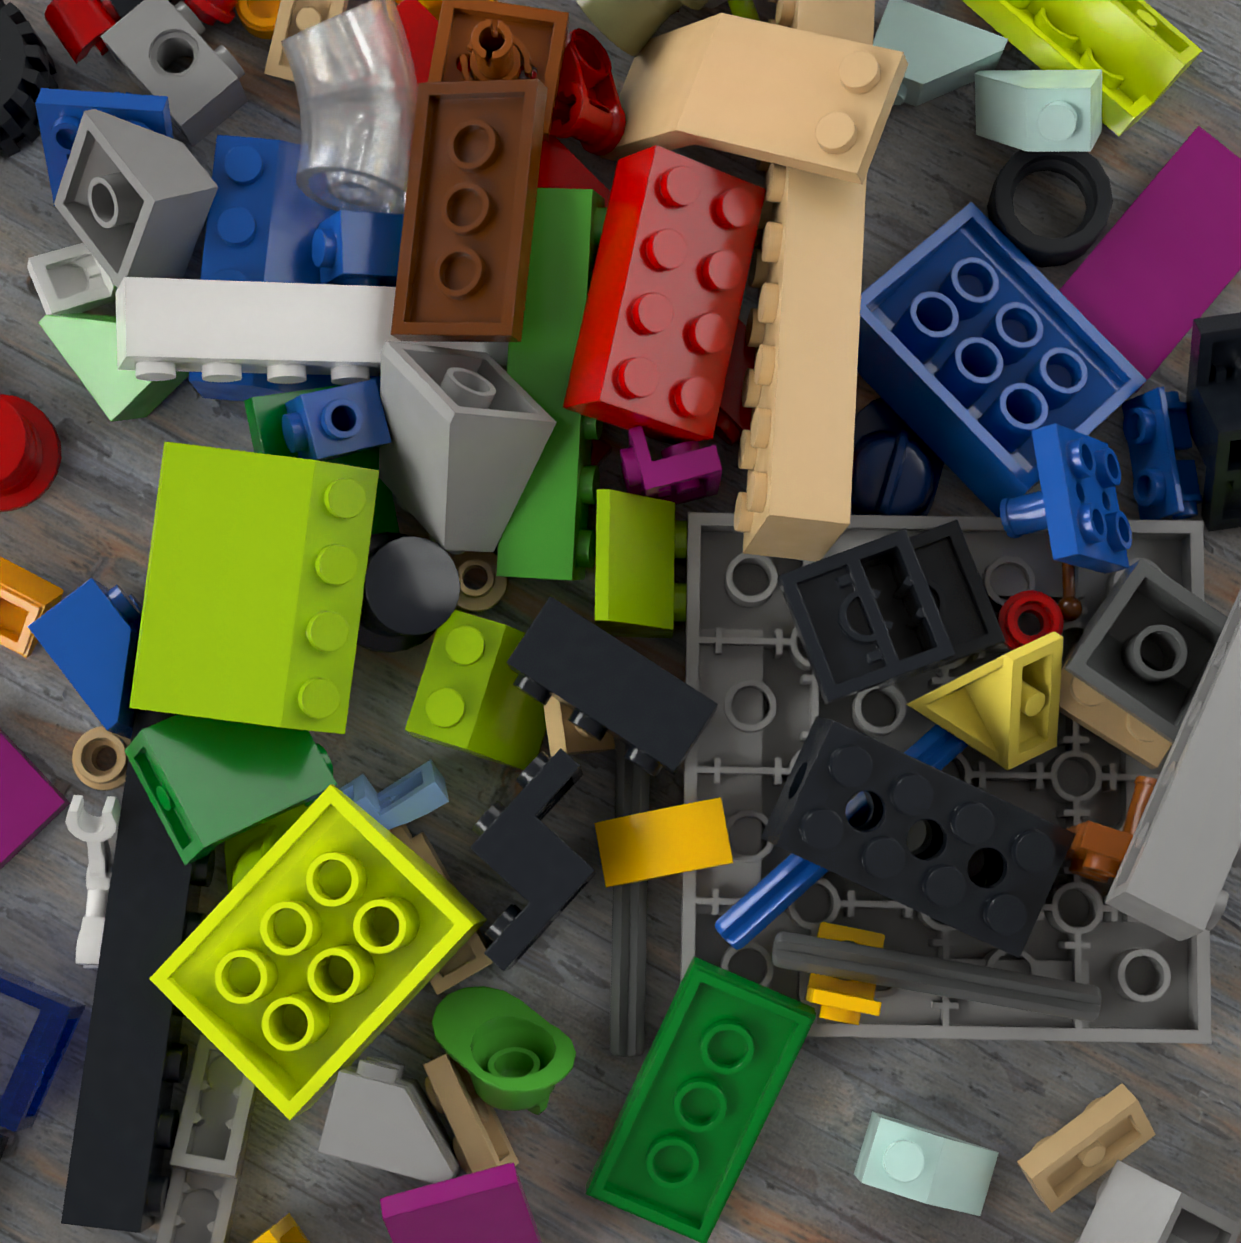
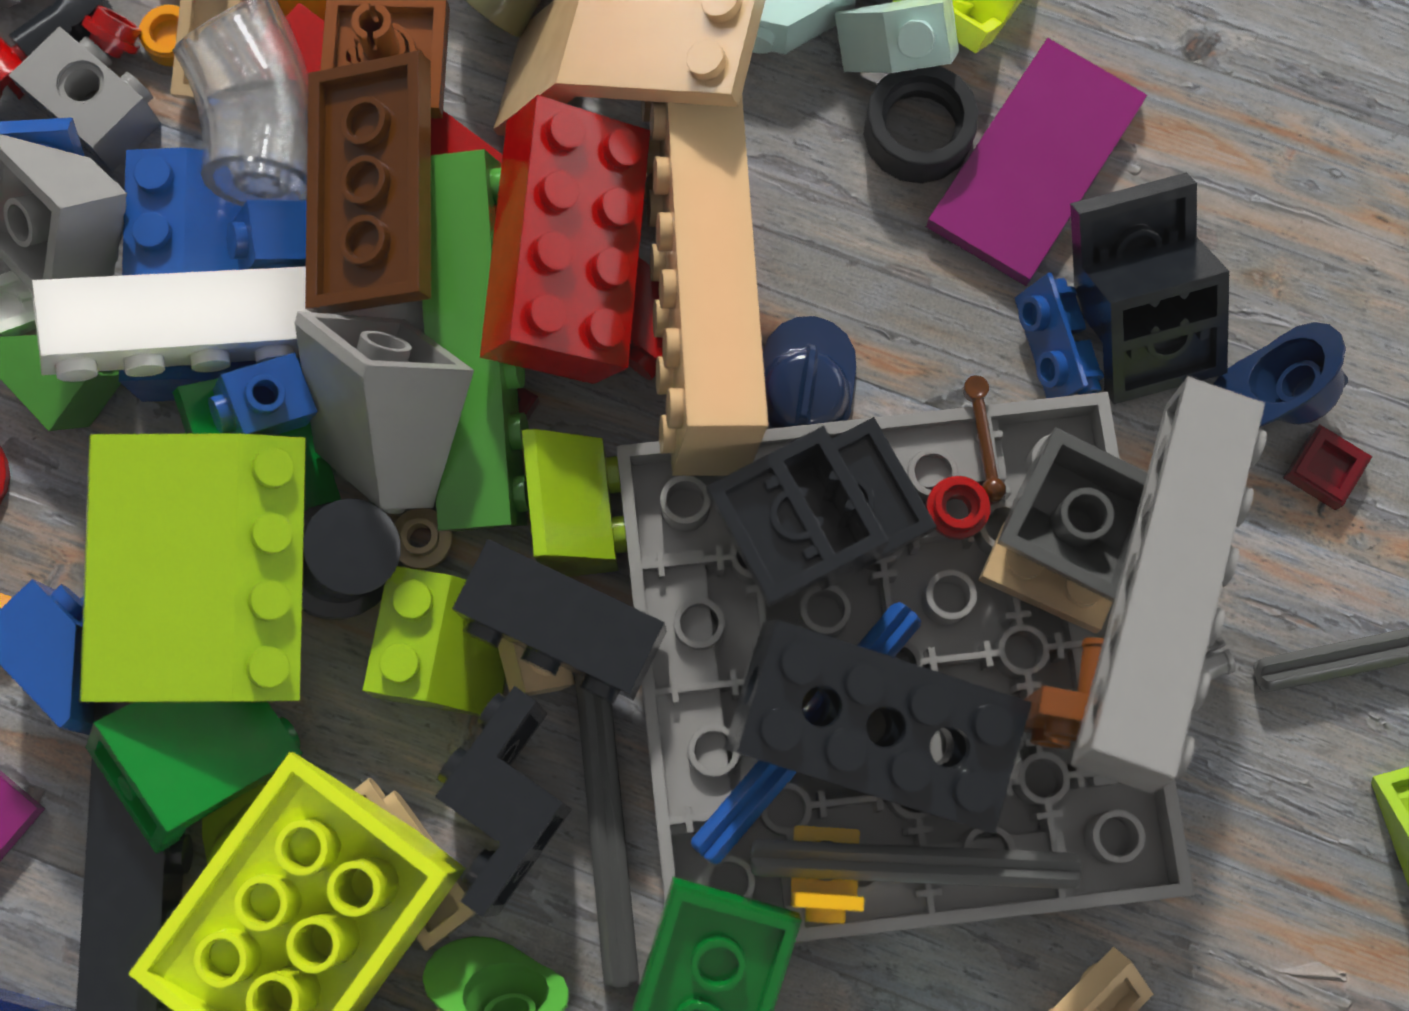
camera: 10 degrees left, 5 degrees down
(85, 757) = (55, 761): tan plate -> none
(96, 833) = (67, 834): white piece -> none
(404, 799) = (372, 761): light blue slope -> none
(587, 96) = (475, 76): red piece -> none
(663, 842) = (631, 767): yellow slope -> none
(679, 477) = (604, 409): magenta bracket -> none
(983, 353) = (882, 270): blue slope -> none
(1005, 705) = (943, 586): light yellow slope -> none
(1074, 501) = (983, 384): blue plate -> none

